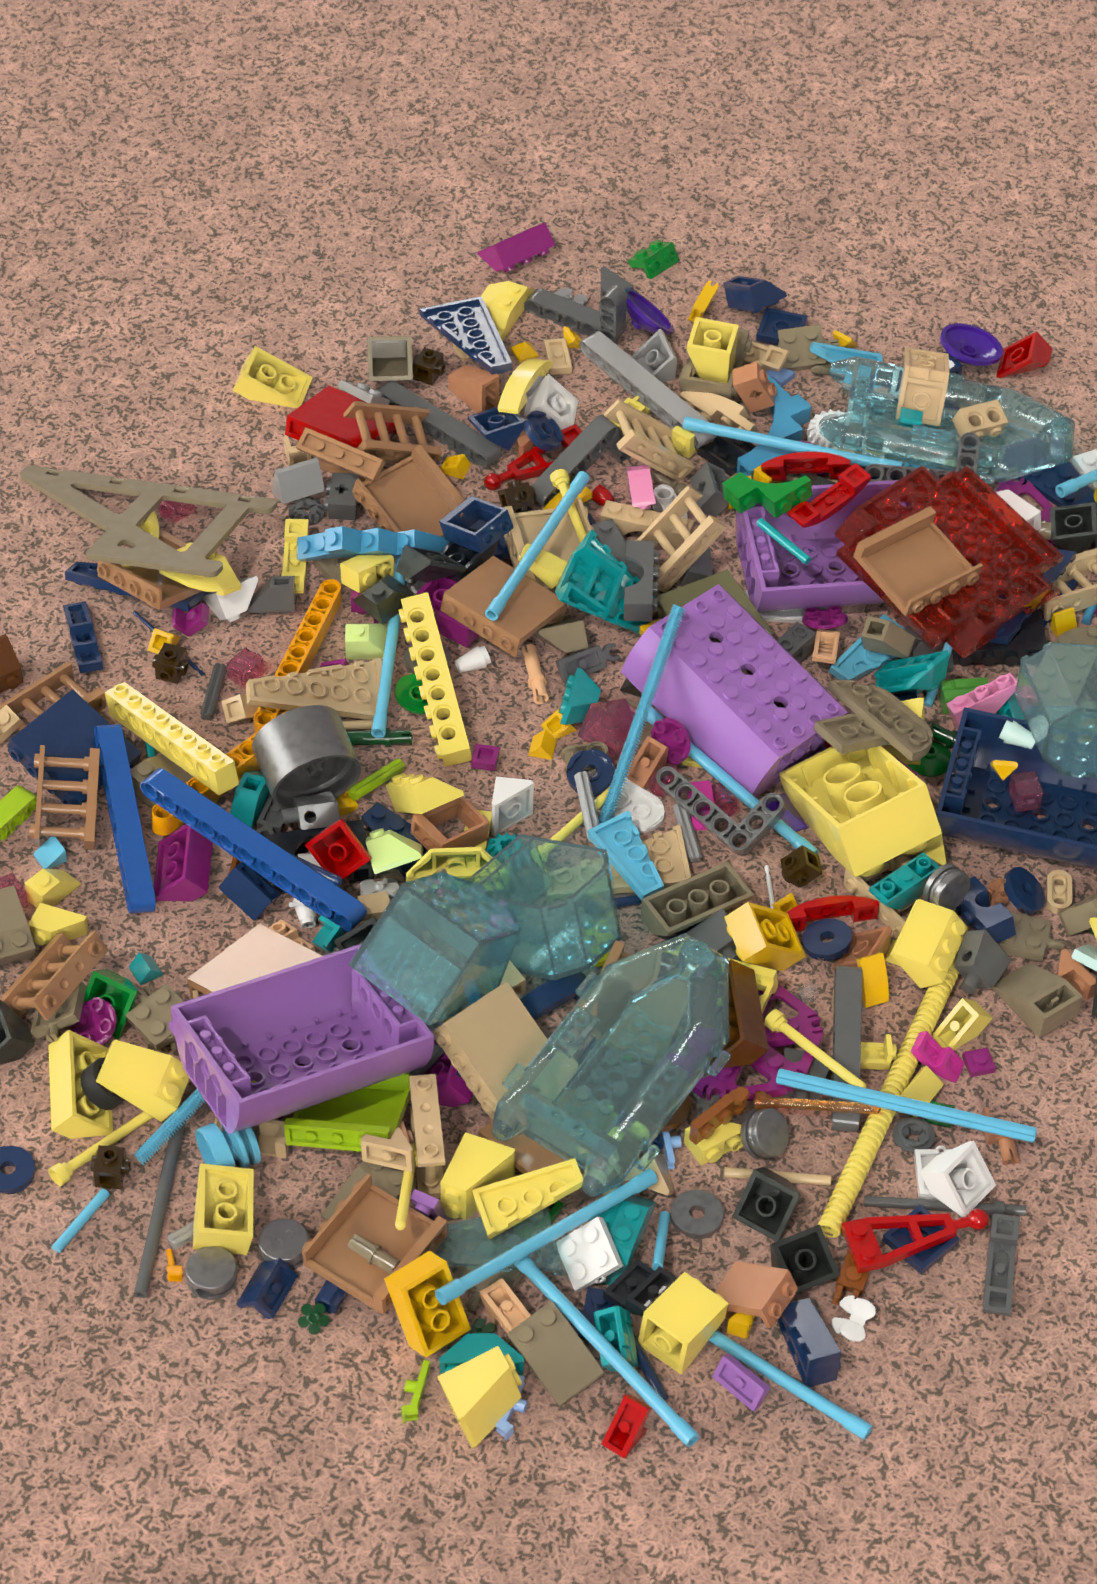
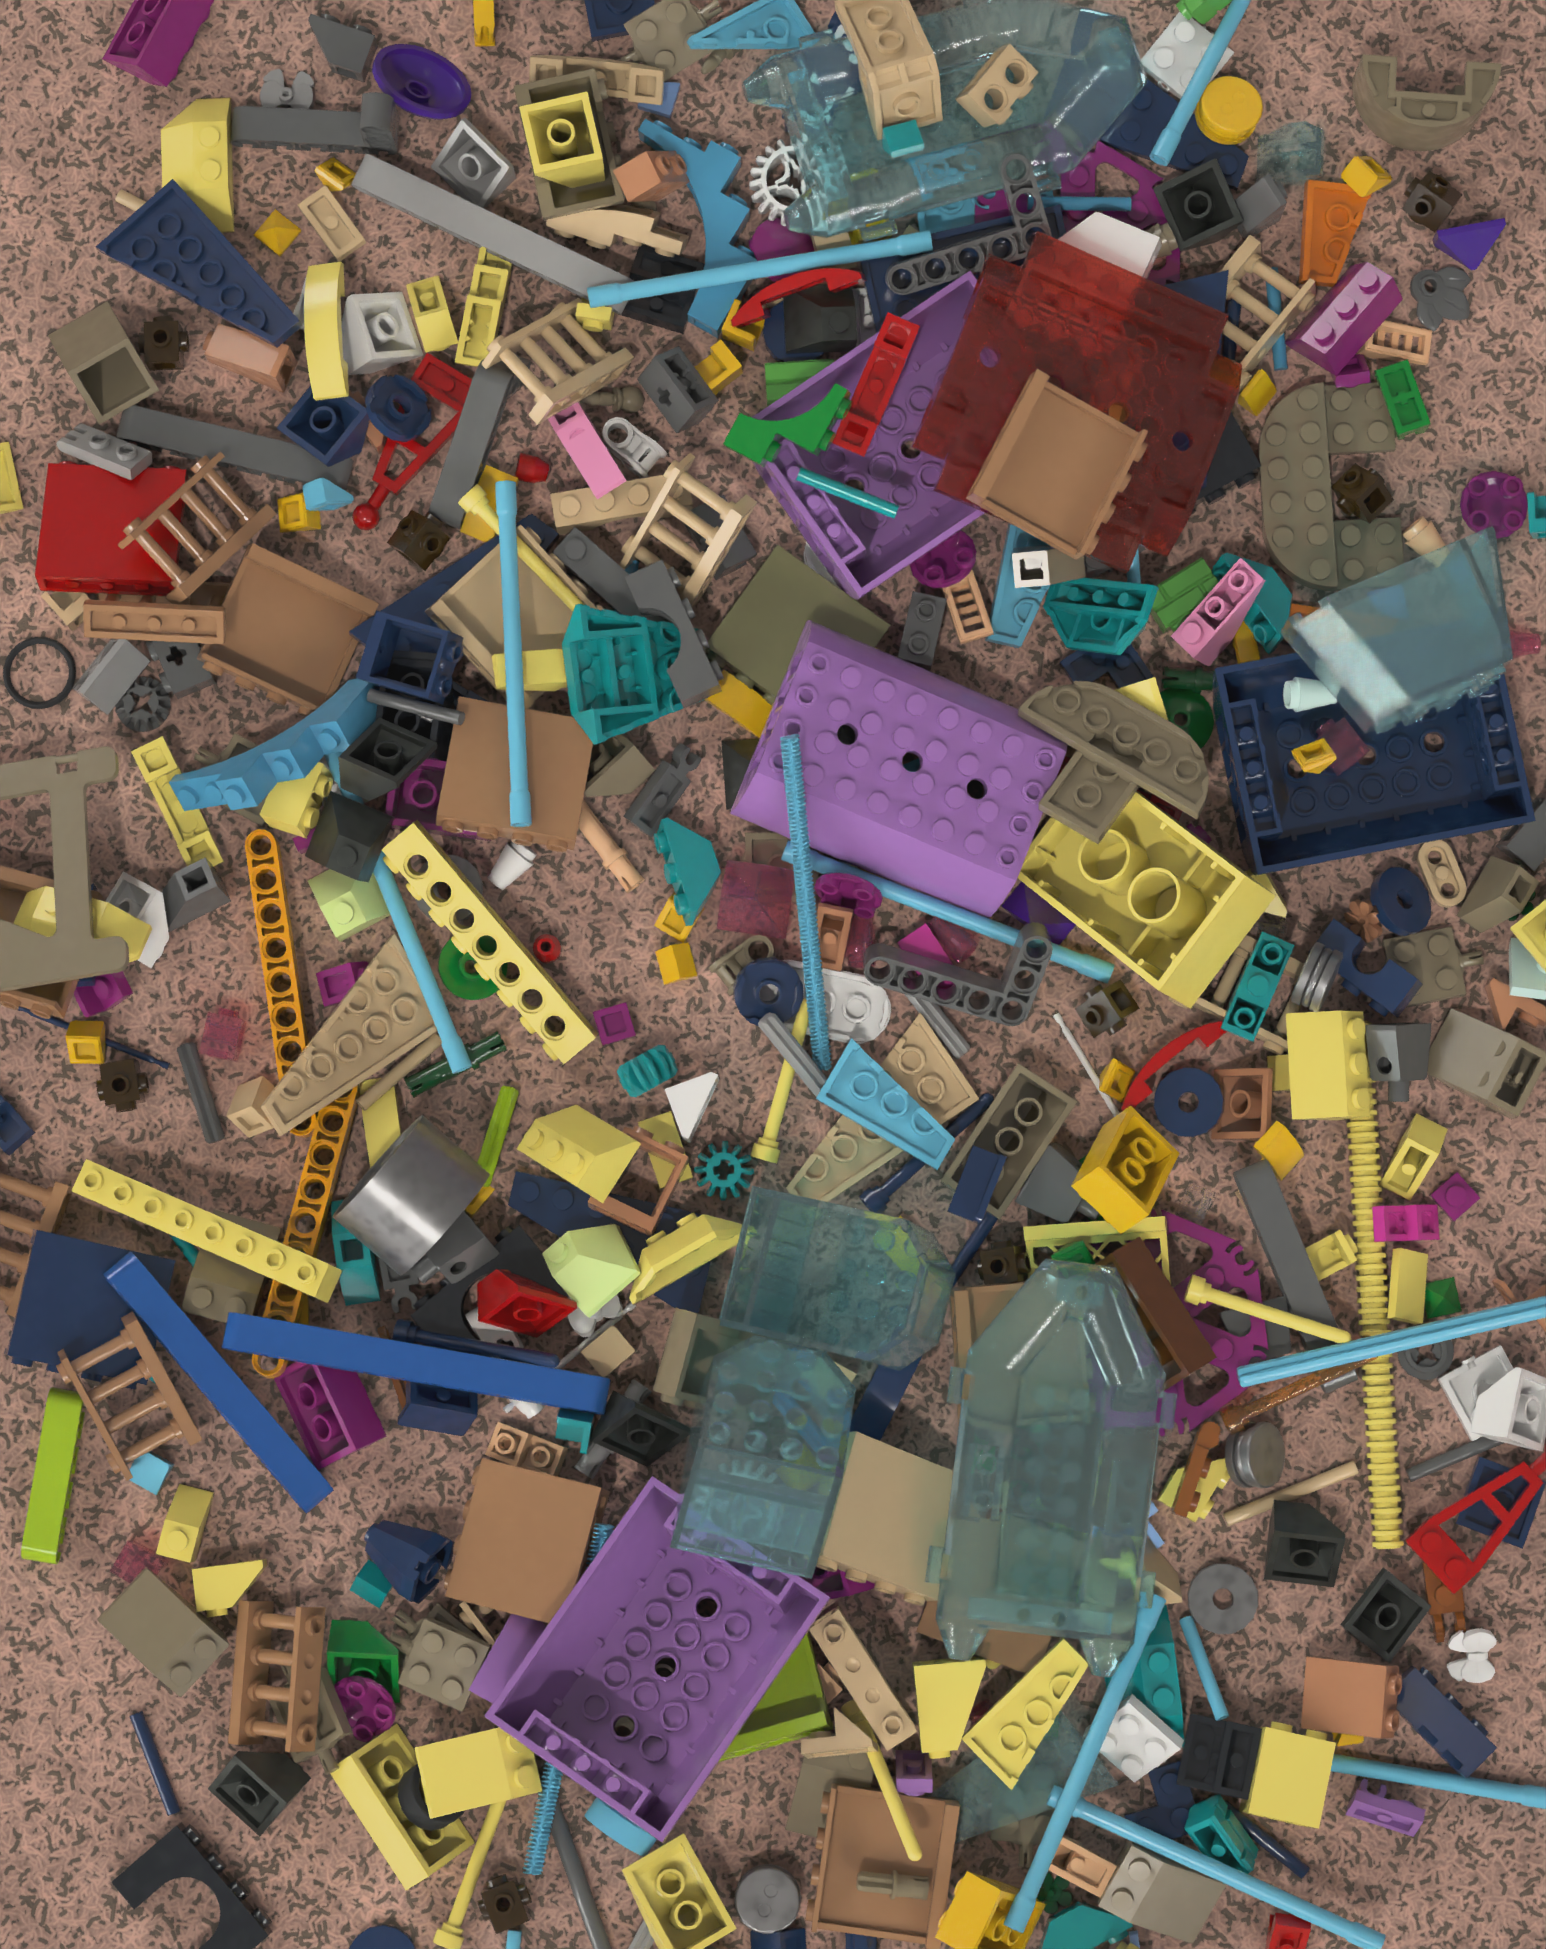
camera: 20 degrees left, 35 degrees up
(179, 957) = (408, 1557): none -> dark blue cone
(250, 463) = (61, 696): none -> black tyre
(465, 550) = (415, 706): none -> dark grey bar
(468, 706) = (551, 955): none -> red hose
(476, 459) = (325, 495): none -> medium azure slope
(484, 778) = (647, 1070): none -> teal gear
(587, 410) = (432, 314): none -> light yellow slope
(665, 905) = (976, 1184): none -> dark blue panel

